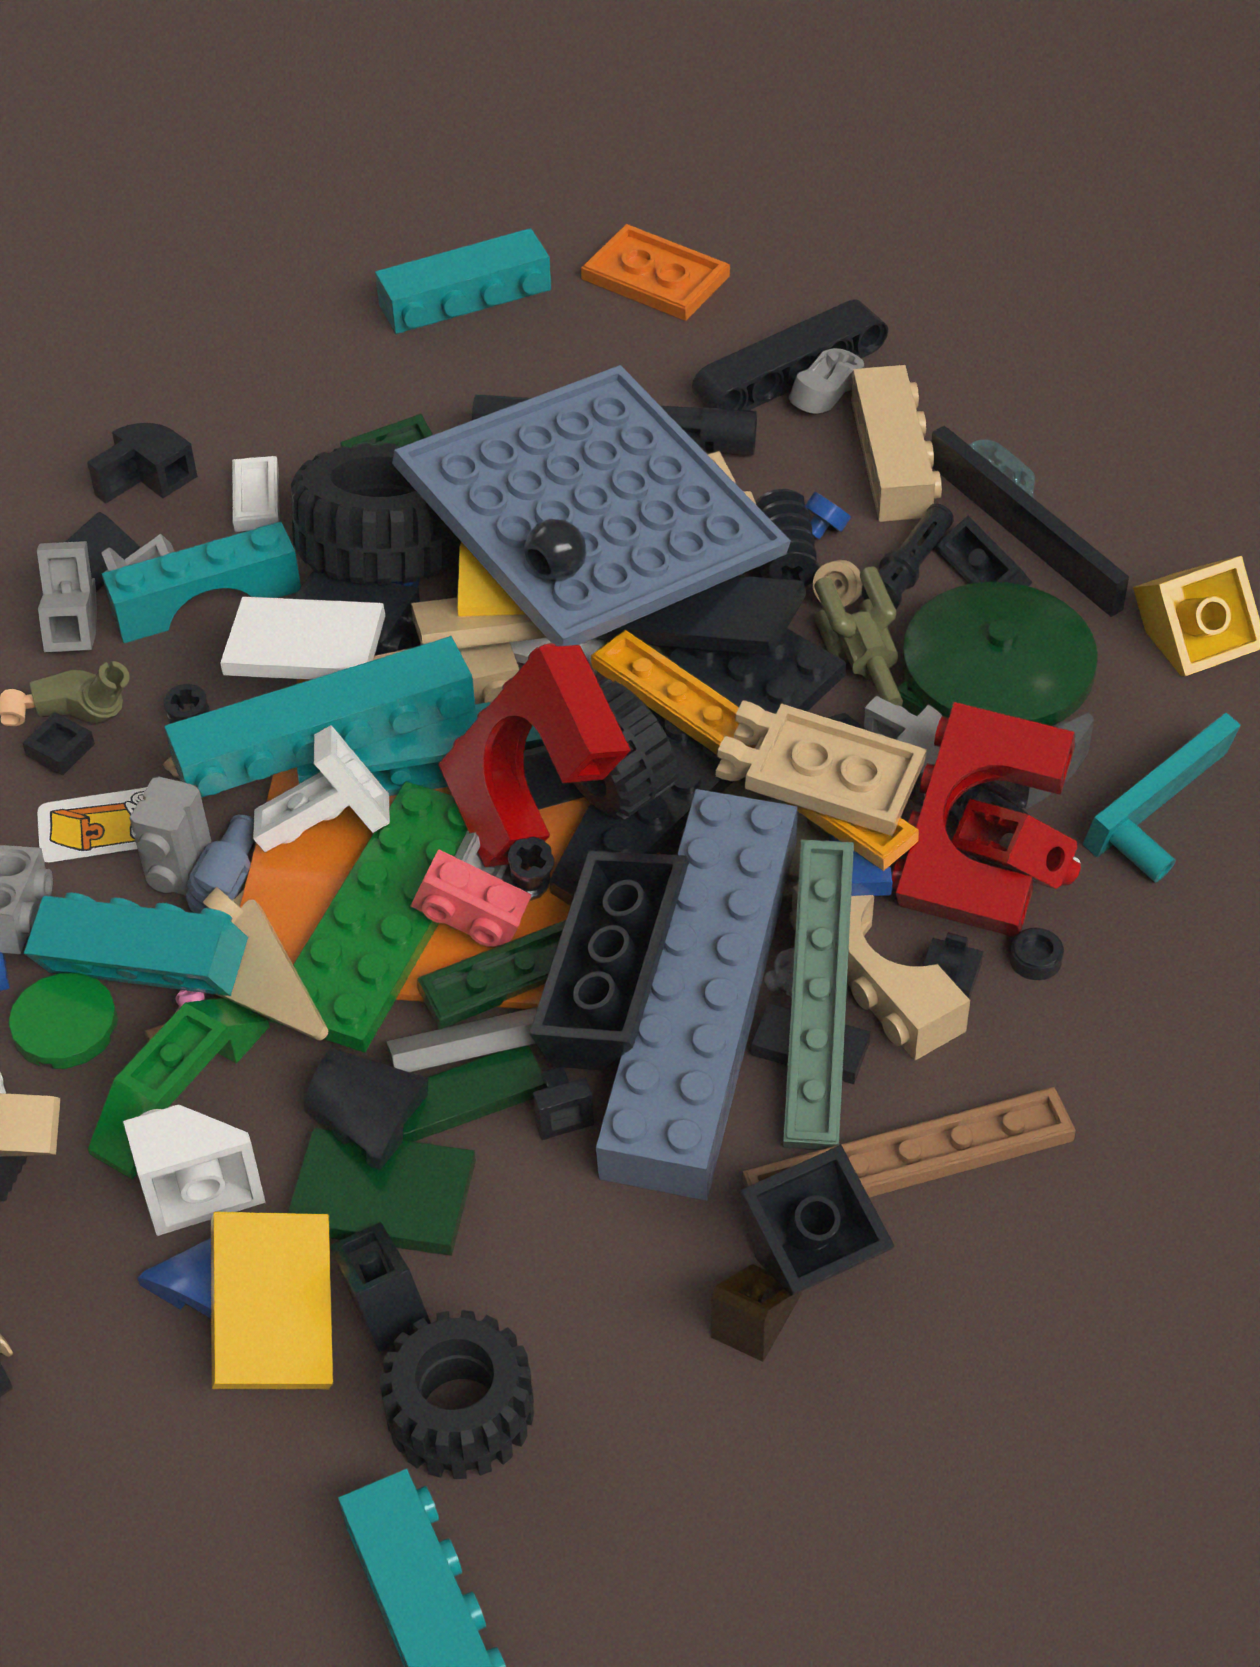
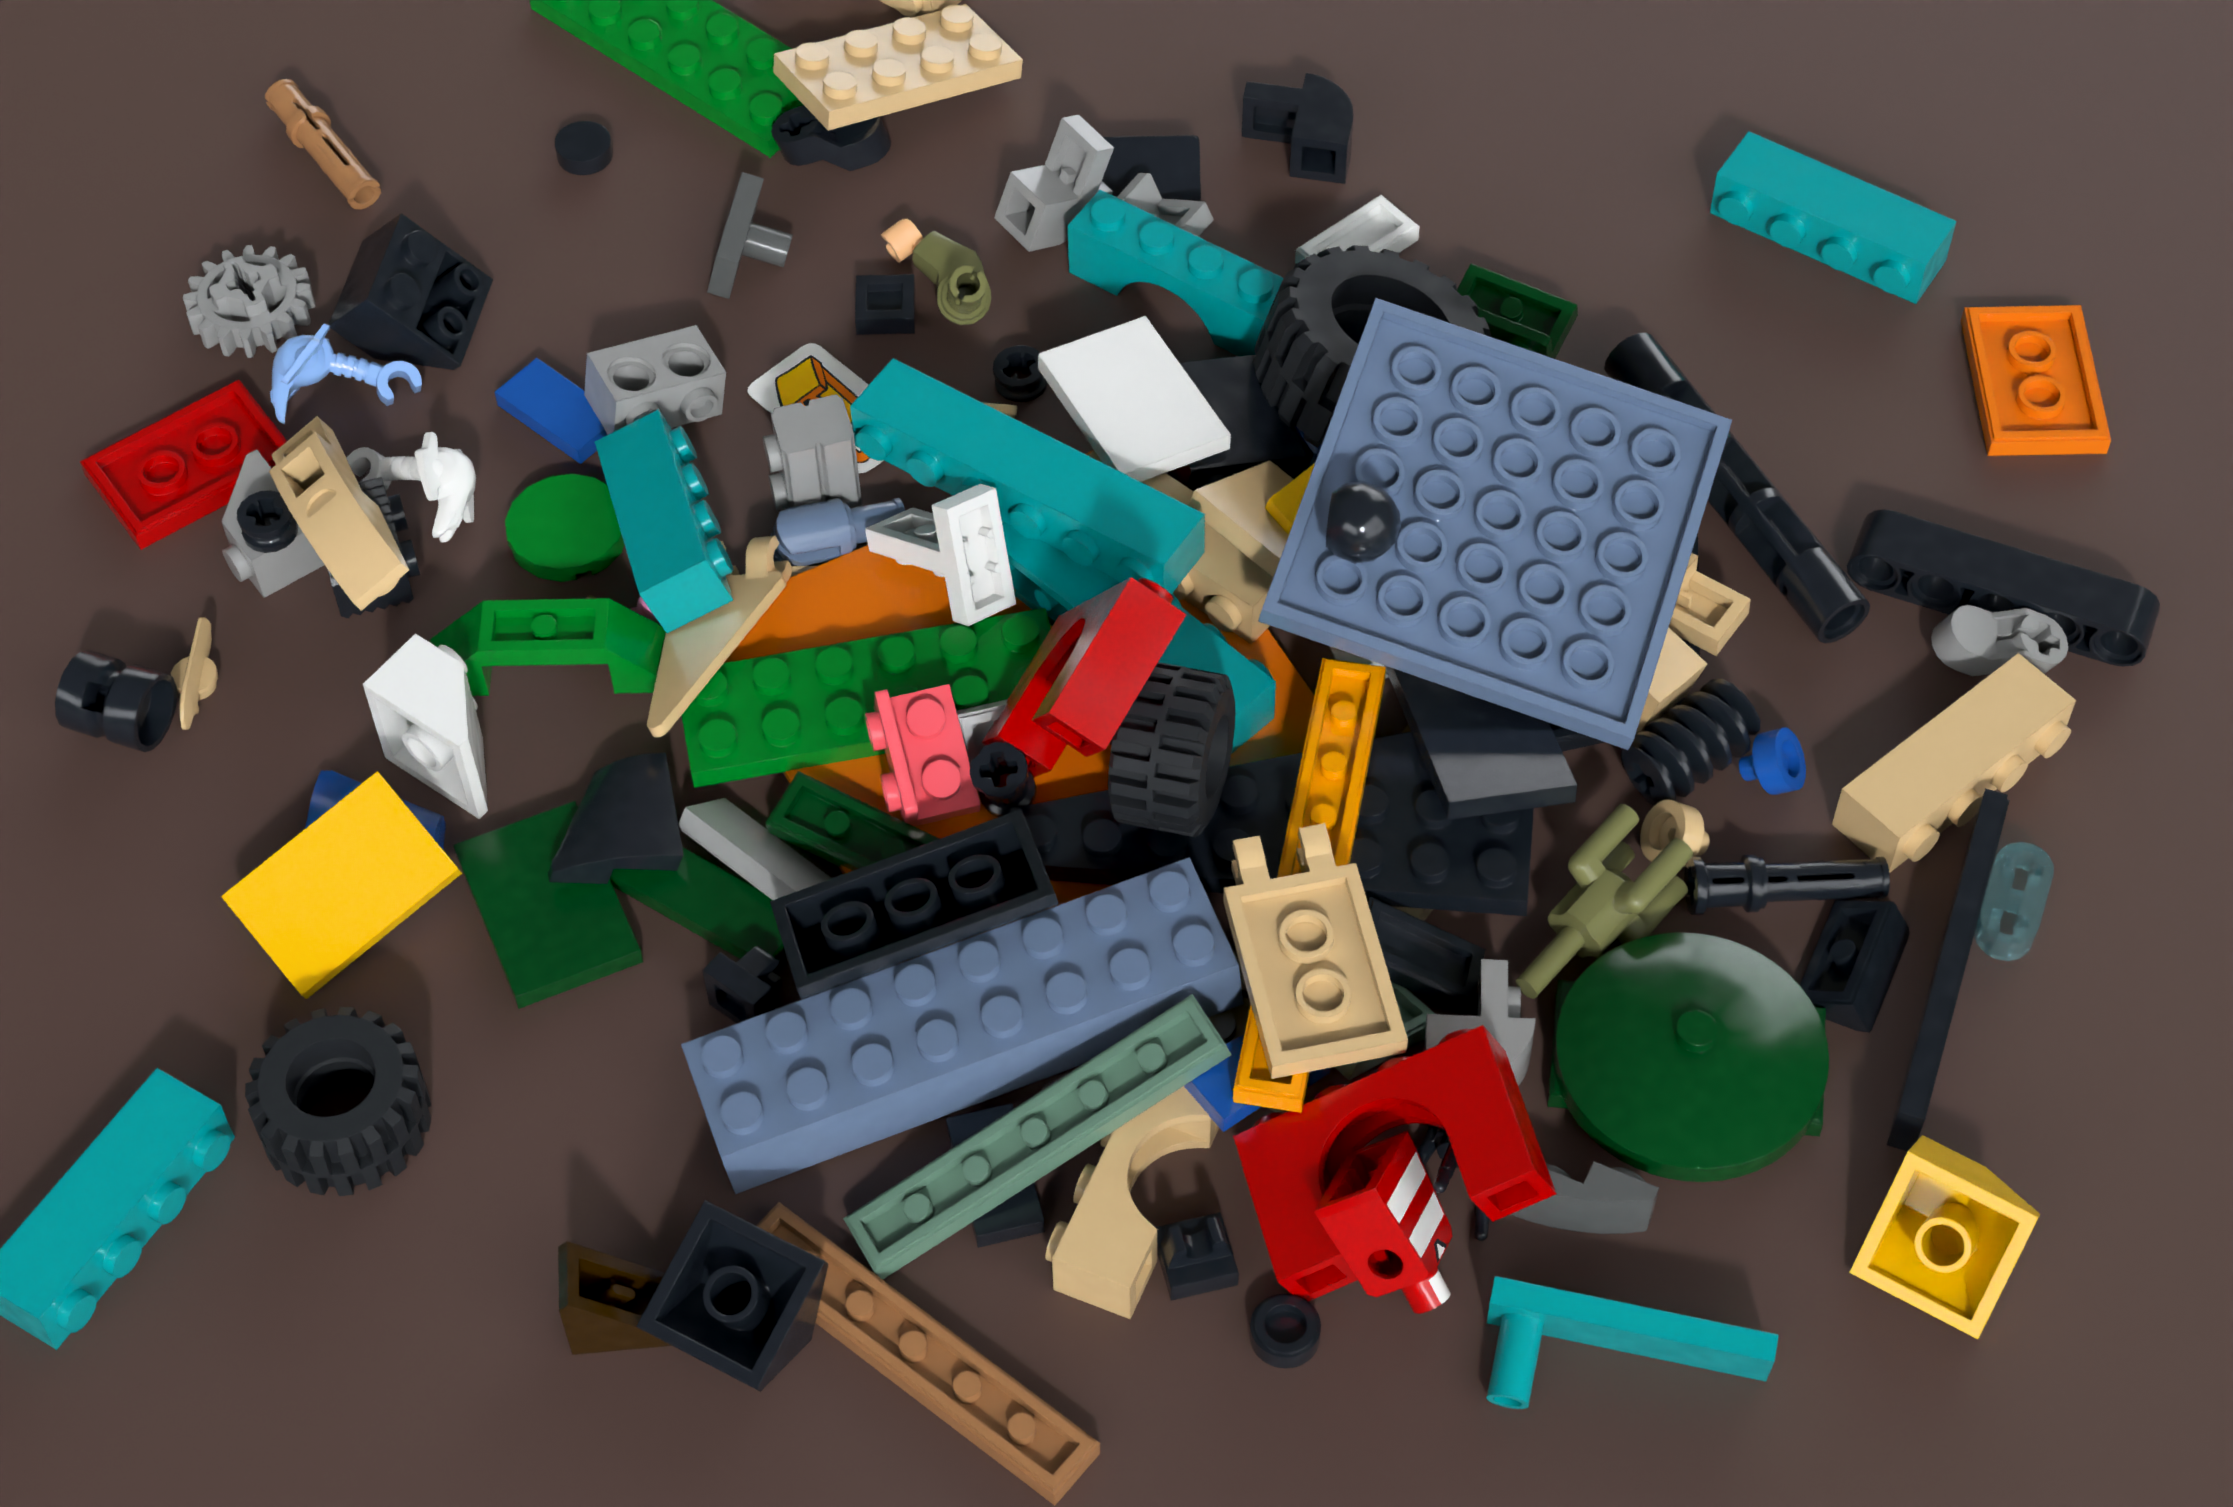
camera: 55 degrees right, 5 degrees up
(379, 1284) = (419, 963): black slope -> none

